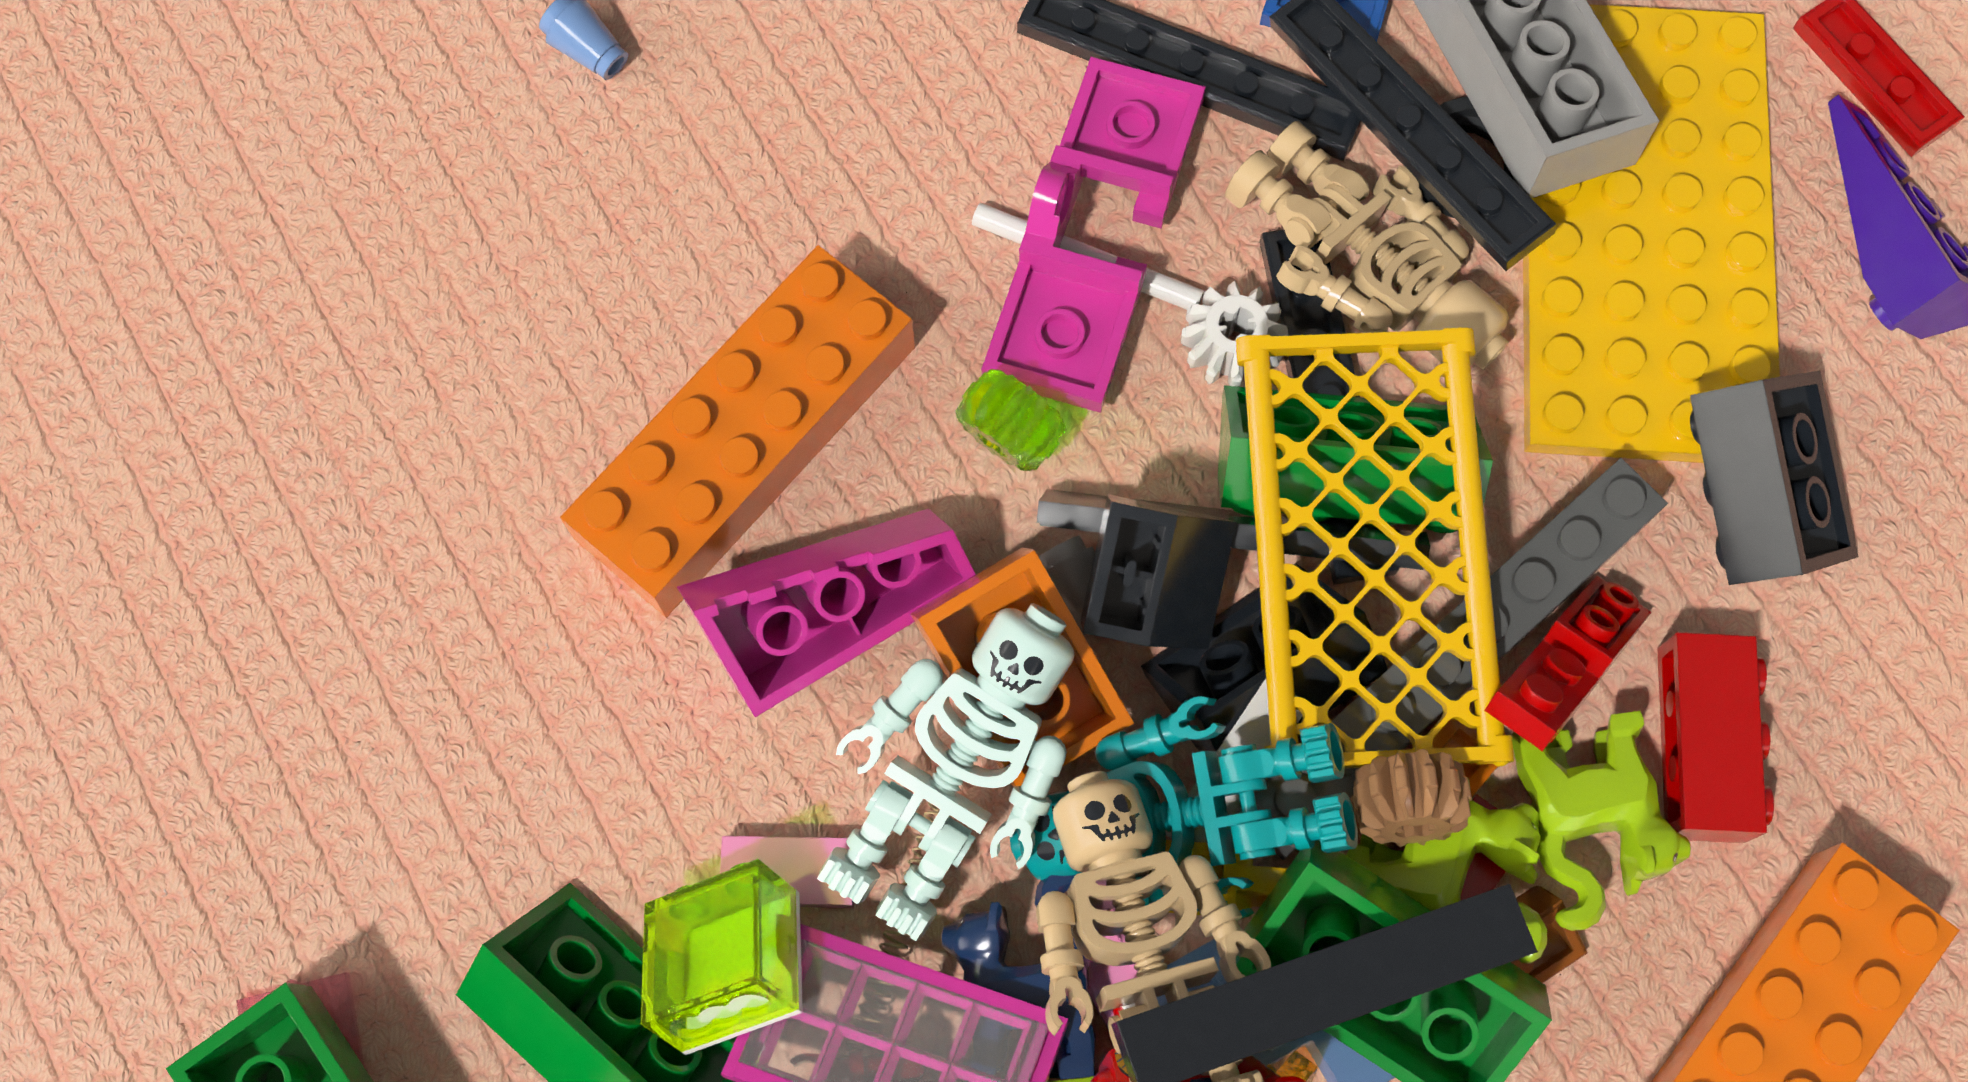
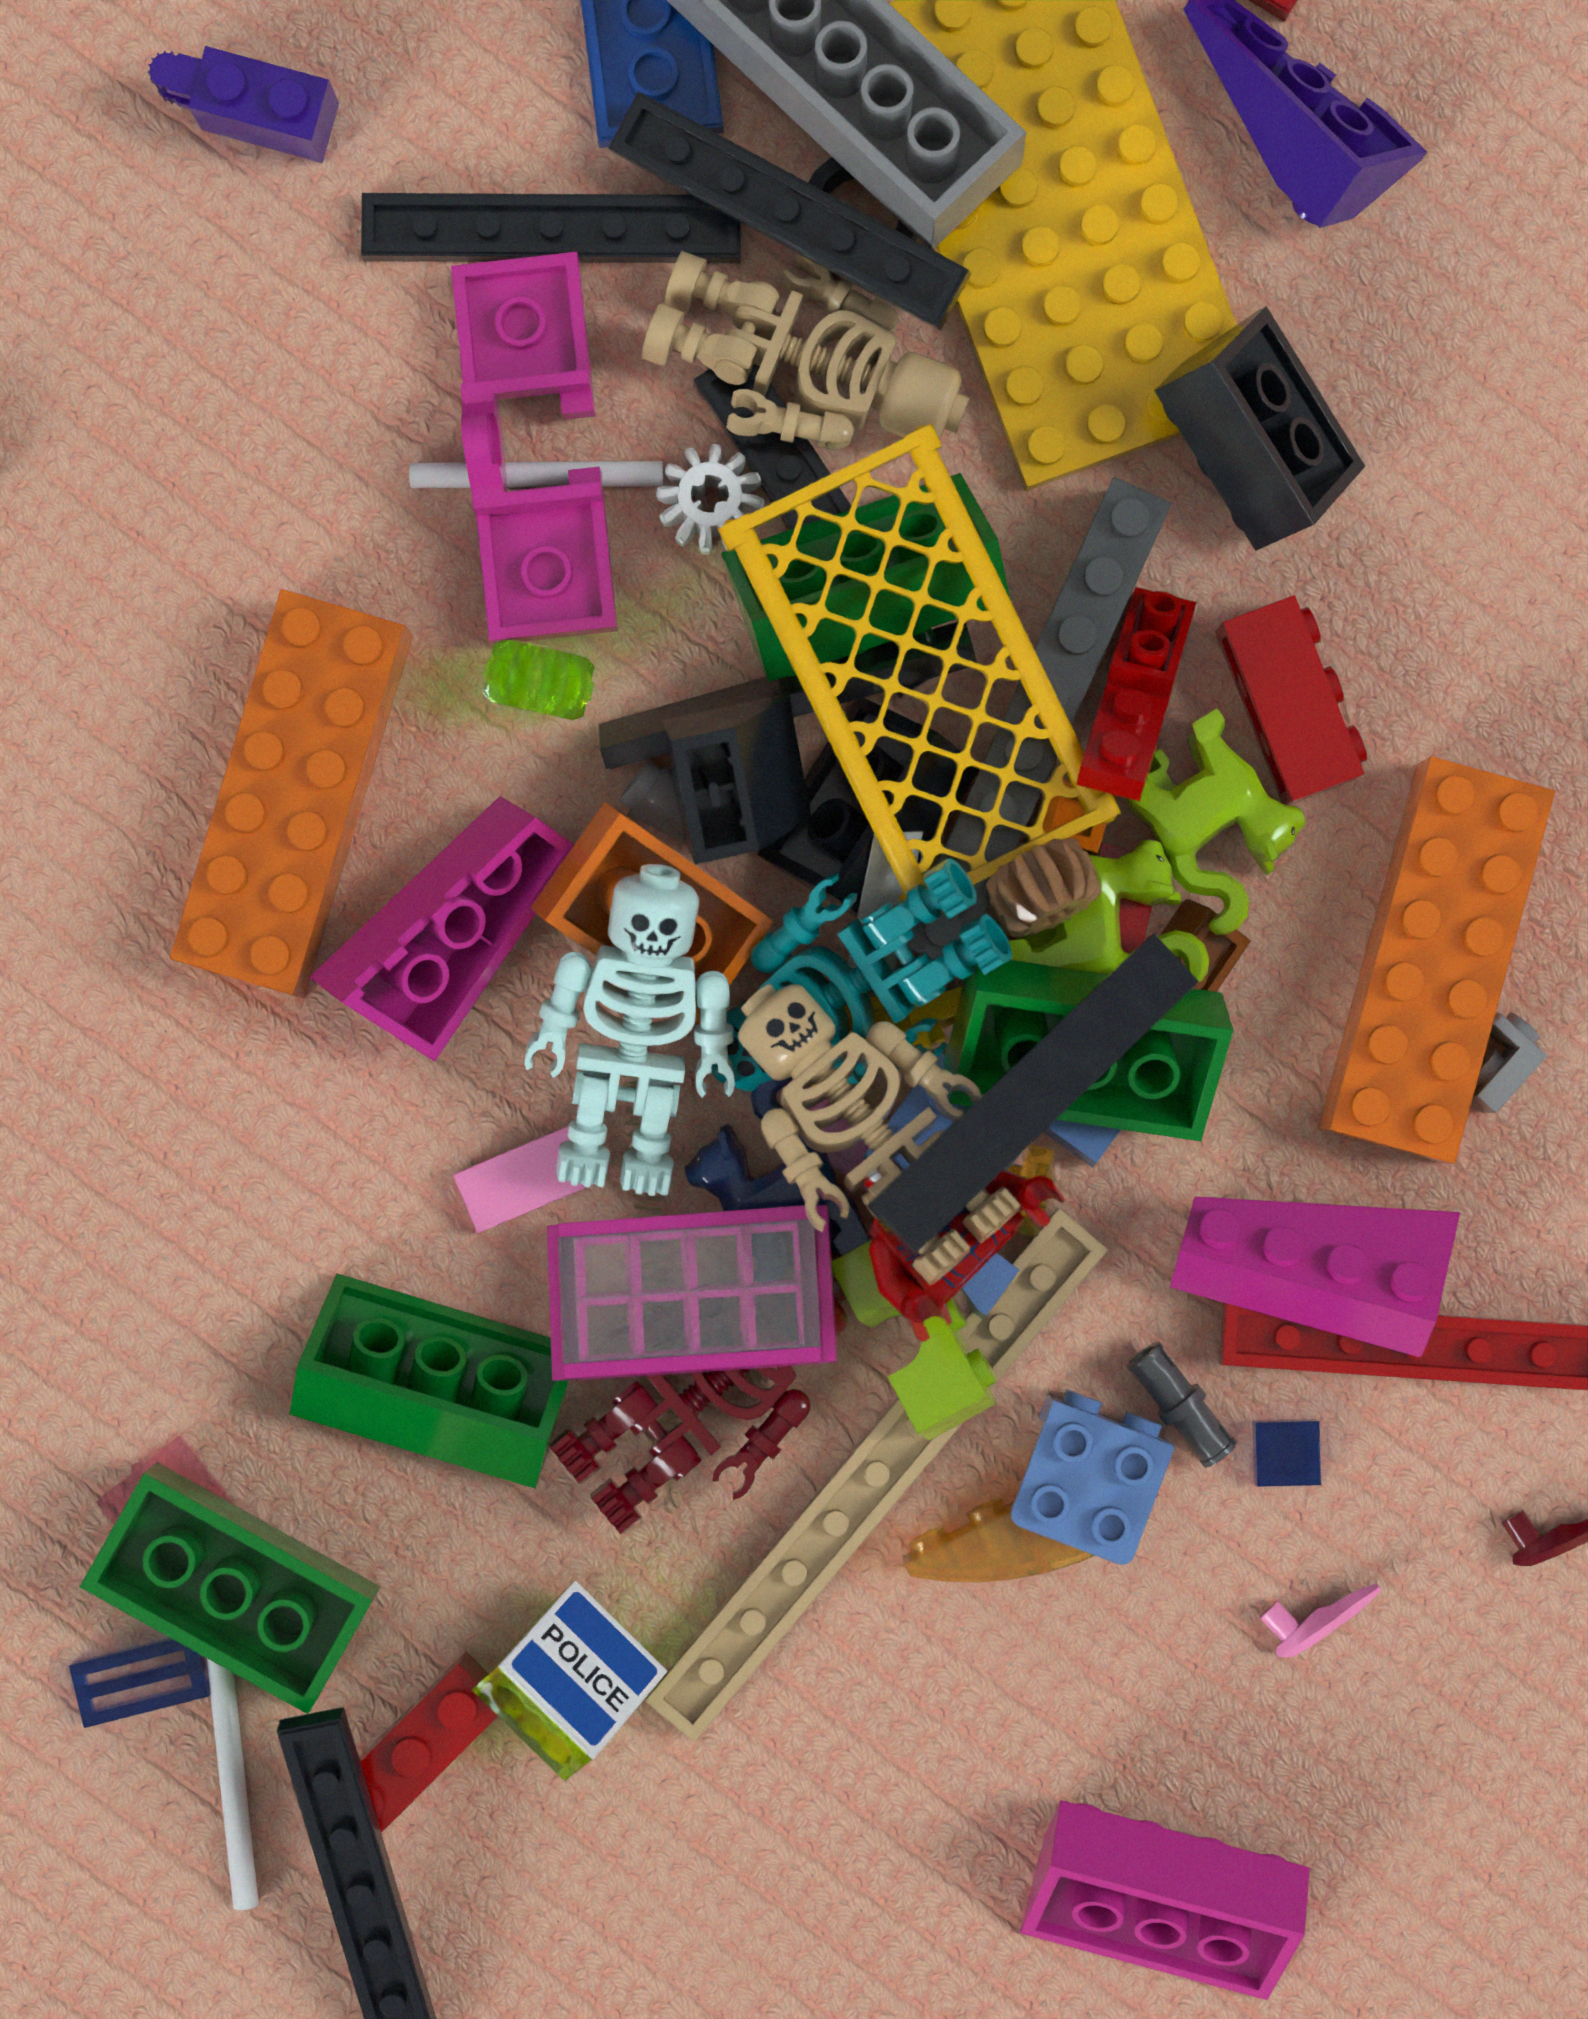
camera: 30 degrees left, 15 degrees up
(721, 957) = (506, 1283): clear neon green piece -> none

